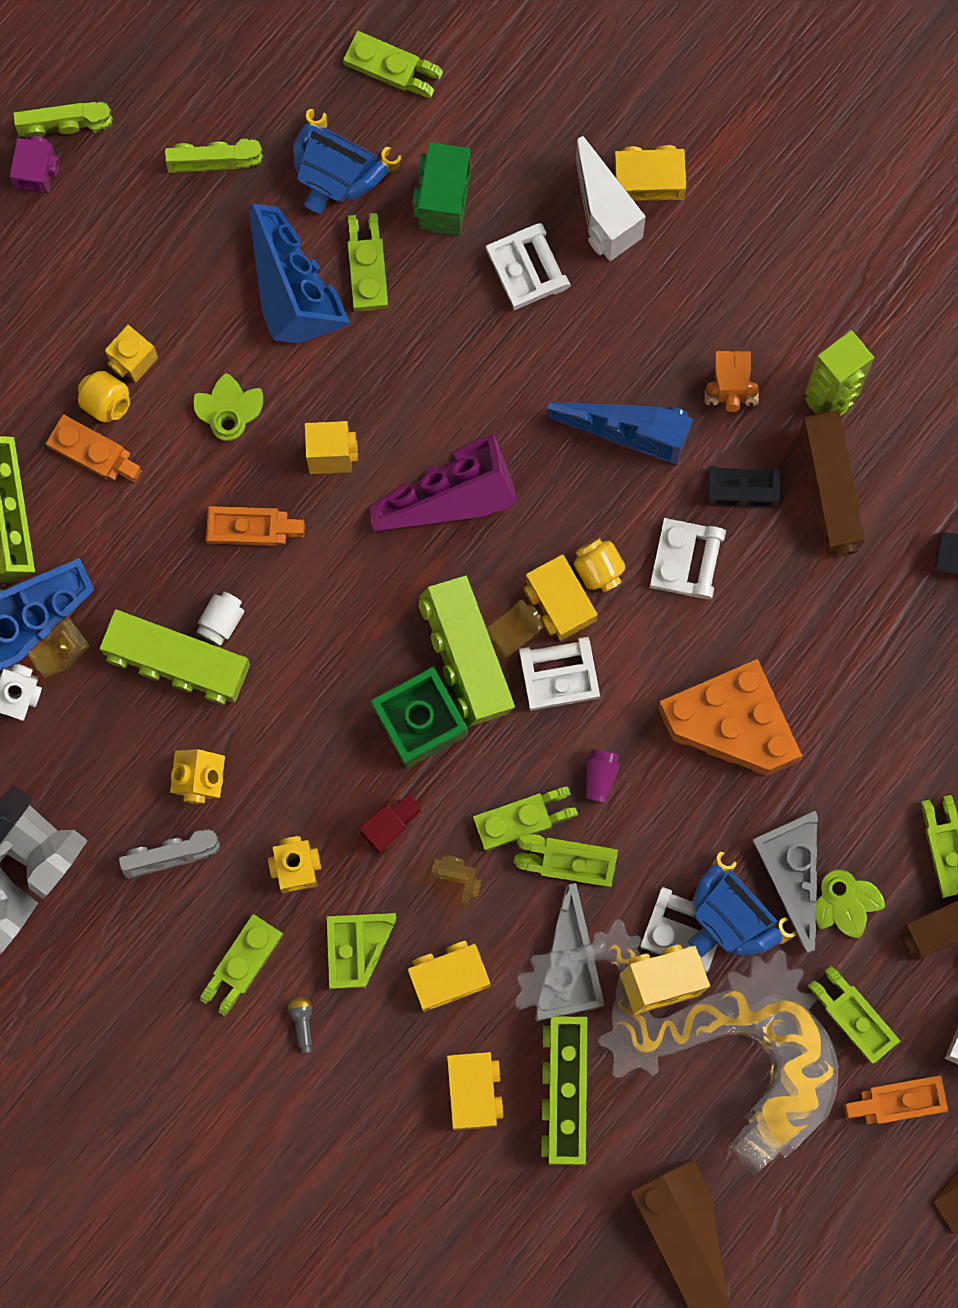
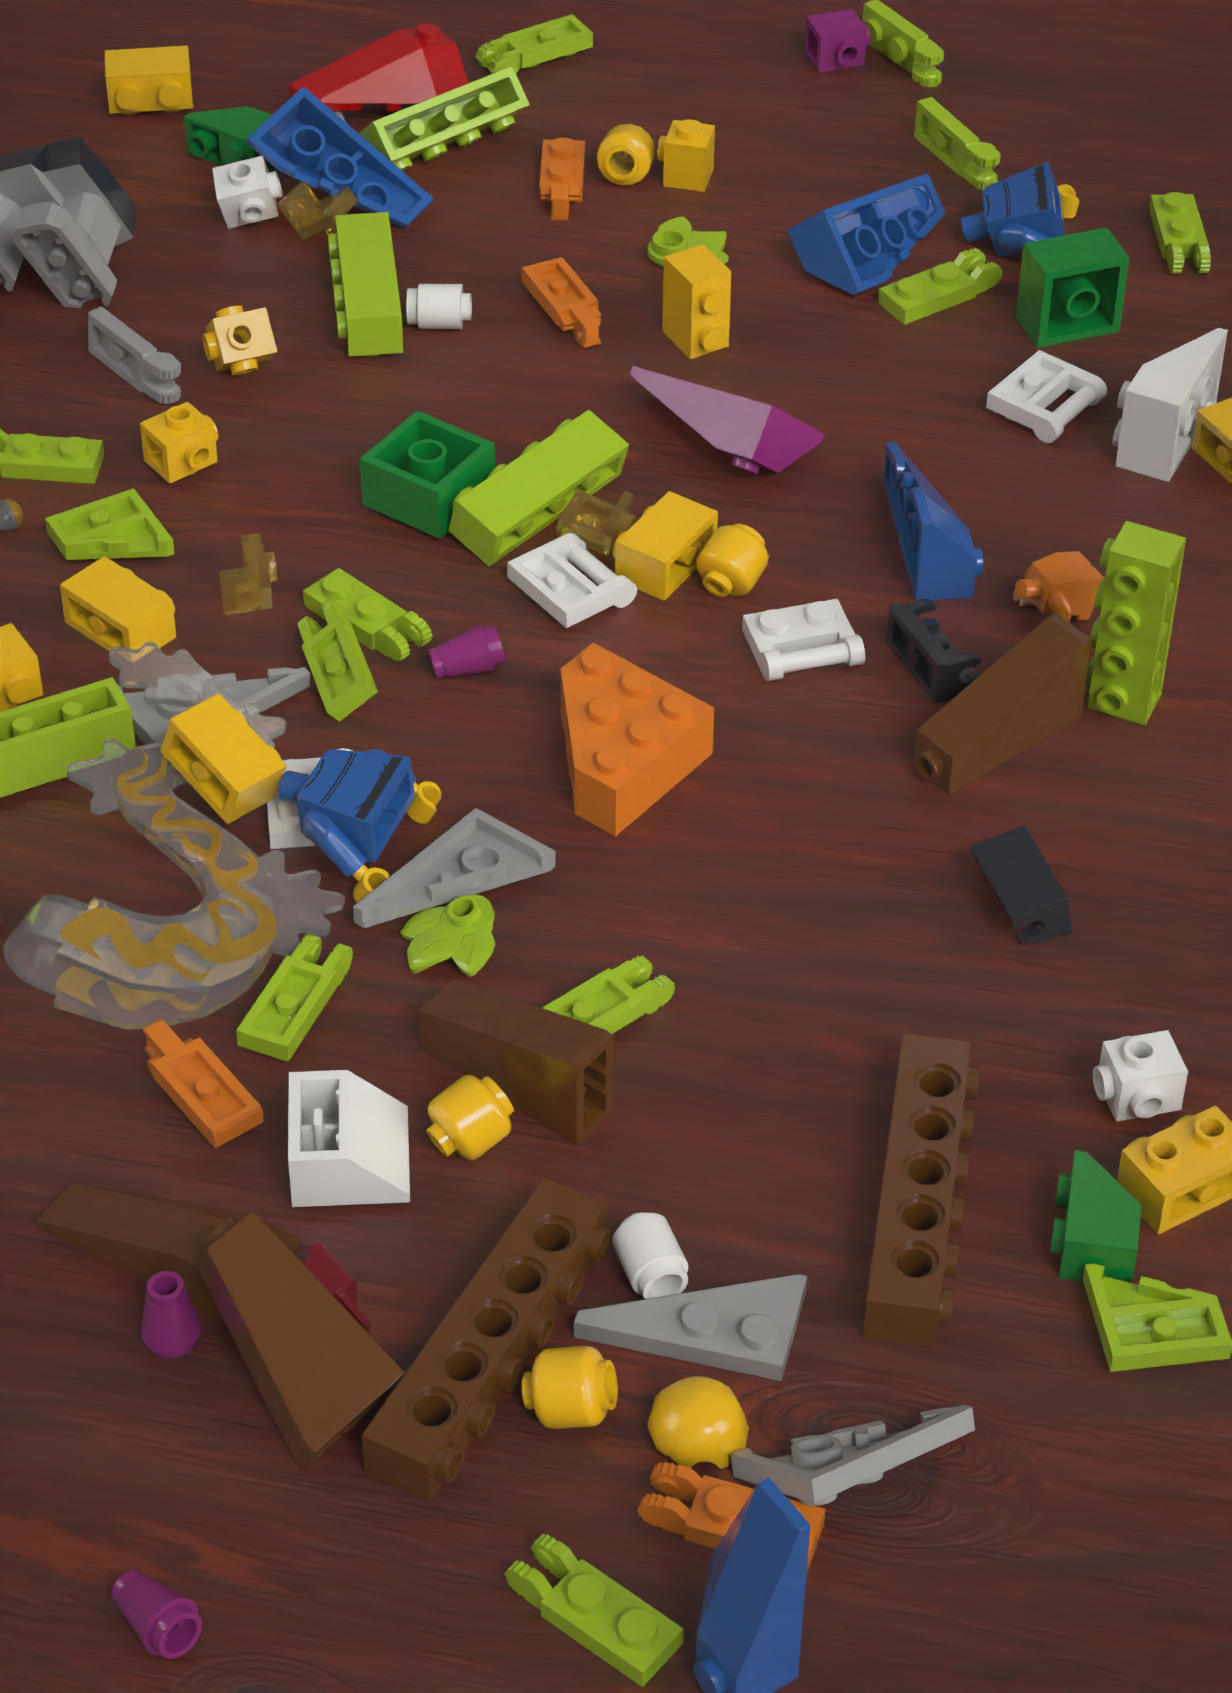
camera: 60 degrees right, 35 degrees down
(389, 825) = (280, 491): dark red piece -> none

